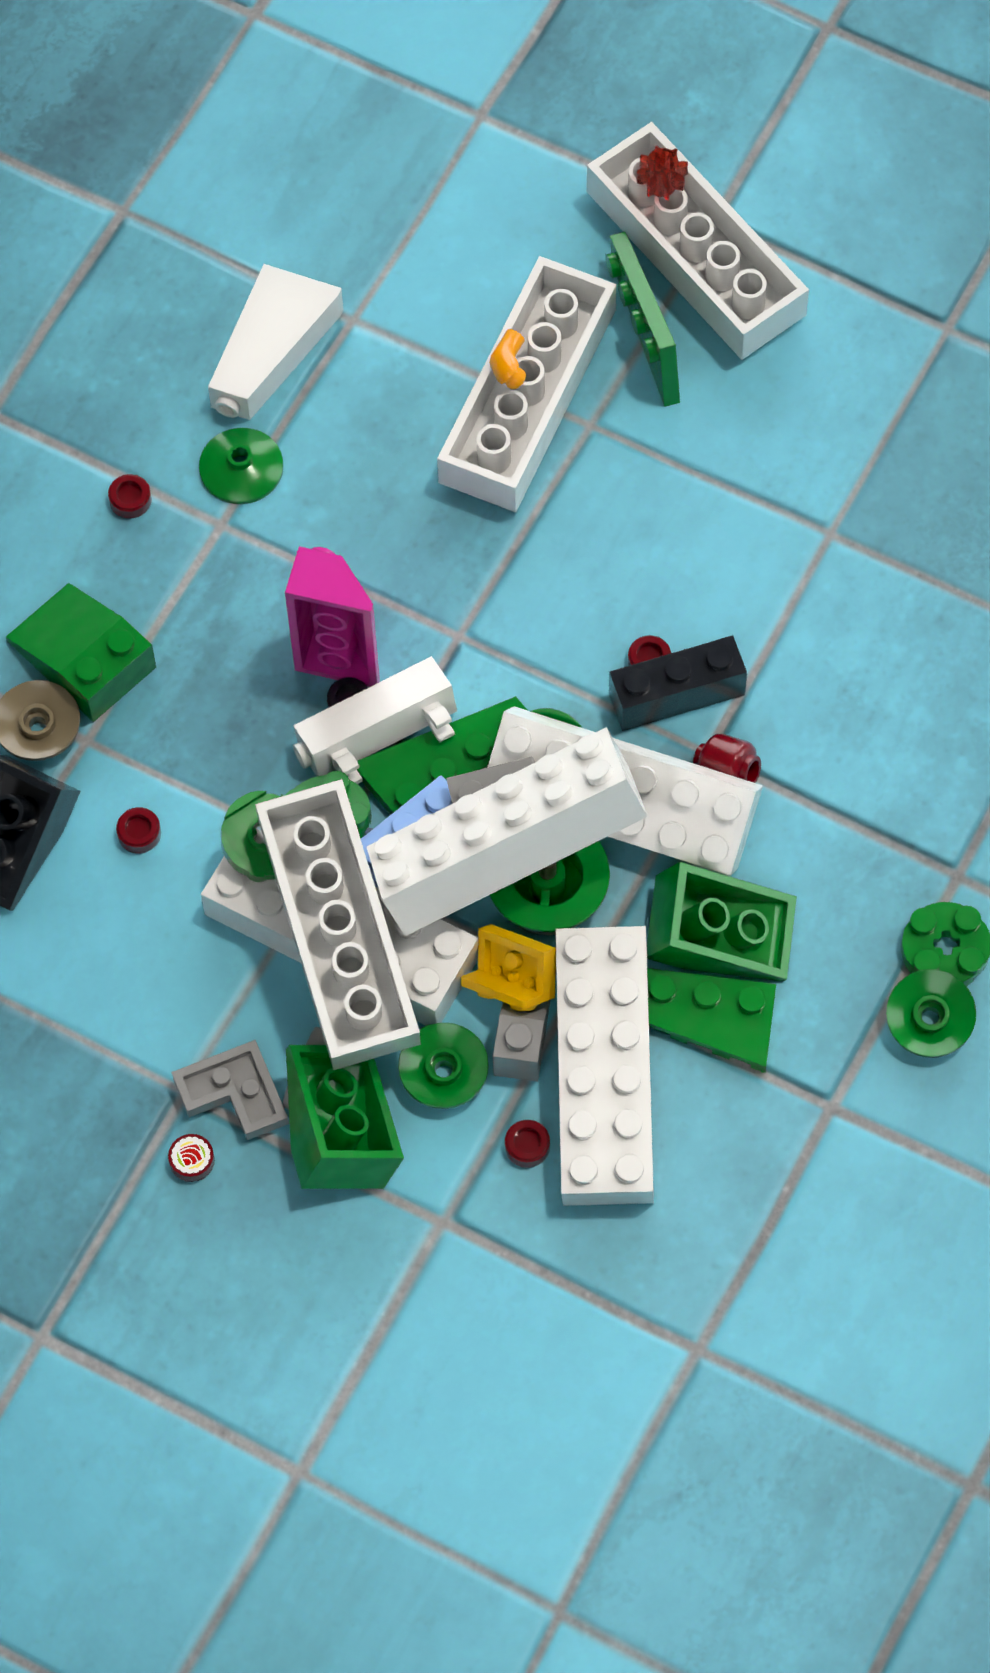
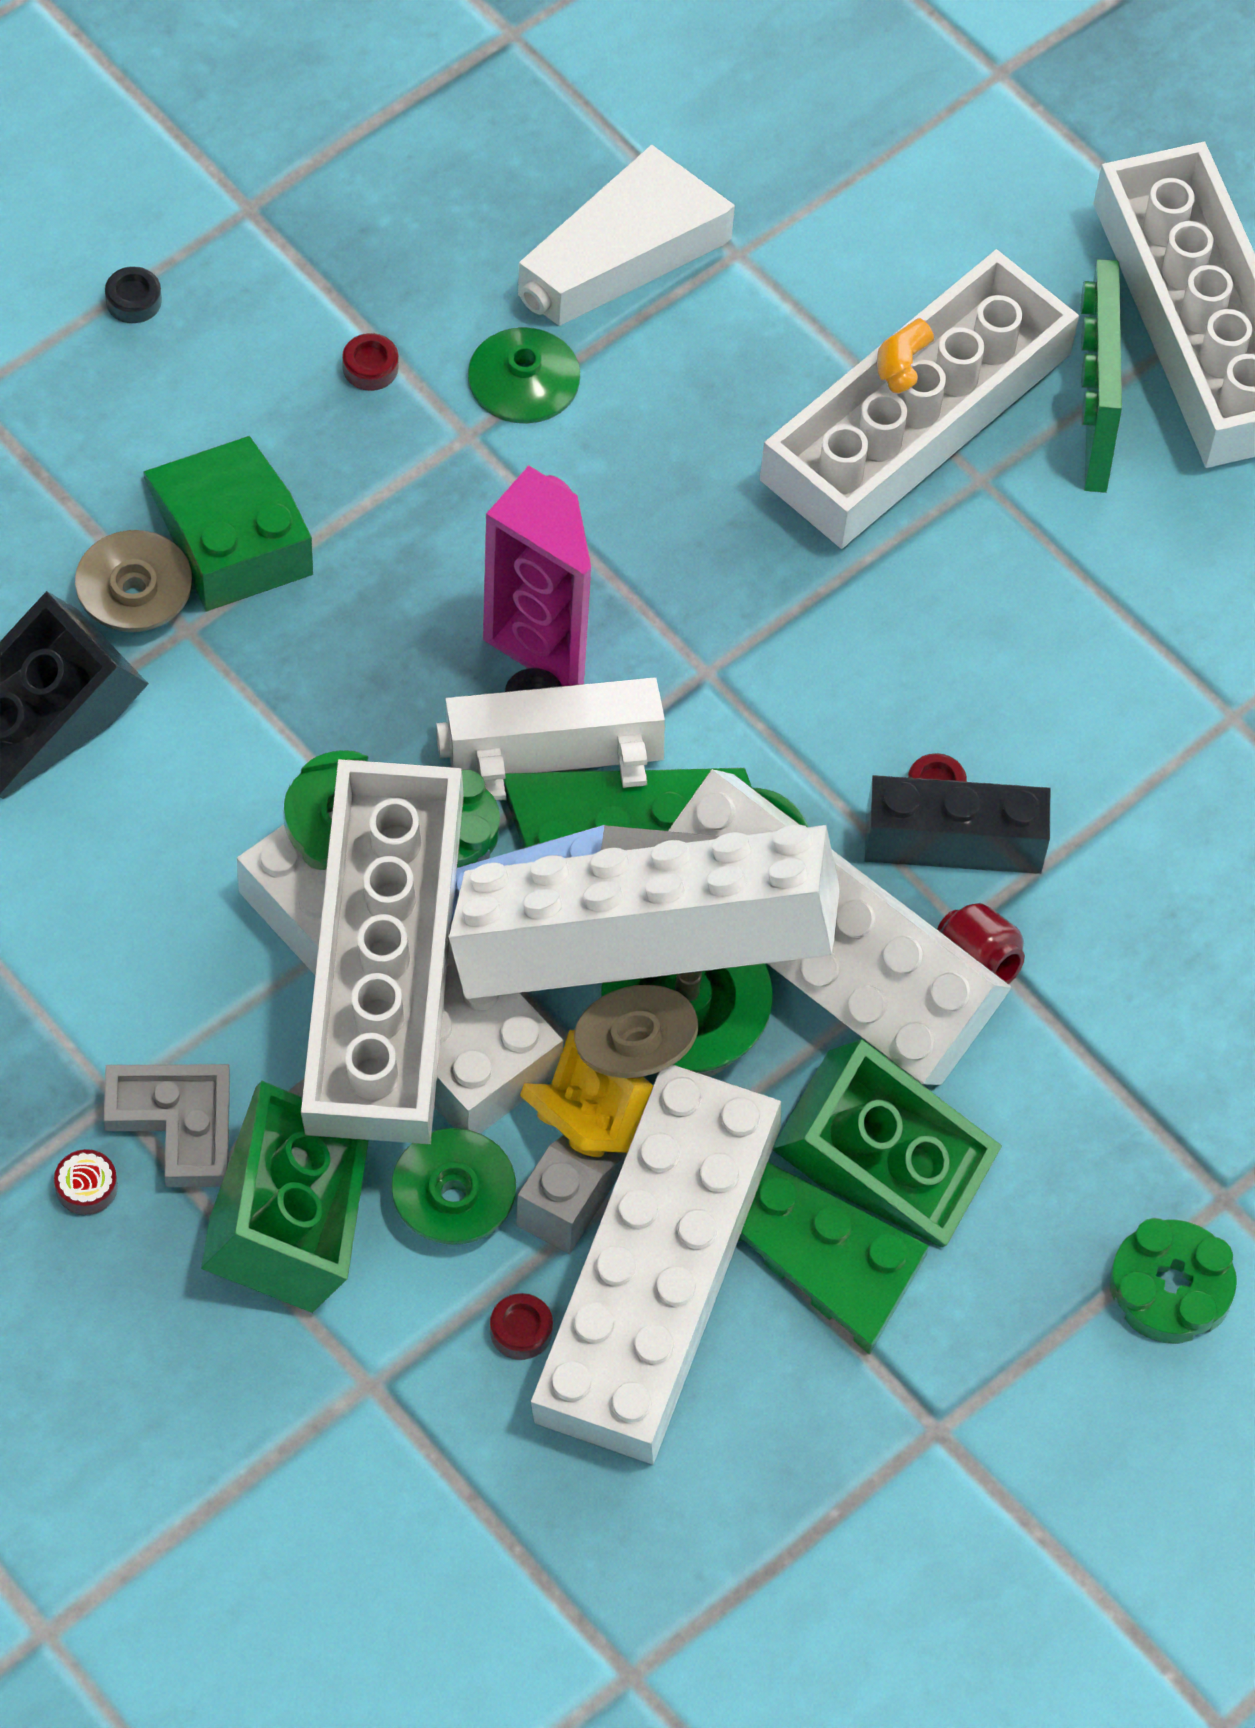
camera: 15 degrees right, 5 degrees down
(138, 830) = (201, 759): dark red tile -> none
(528, 914) = (636, 1031): none -> dark tan dish
(662, 172) = (1190, 200): clear red gear -> none
(933, 992) = (1122, 1329): green dish -> none

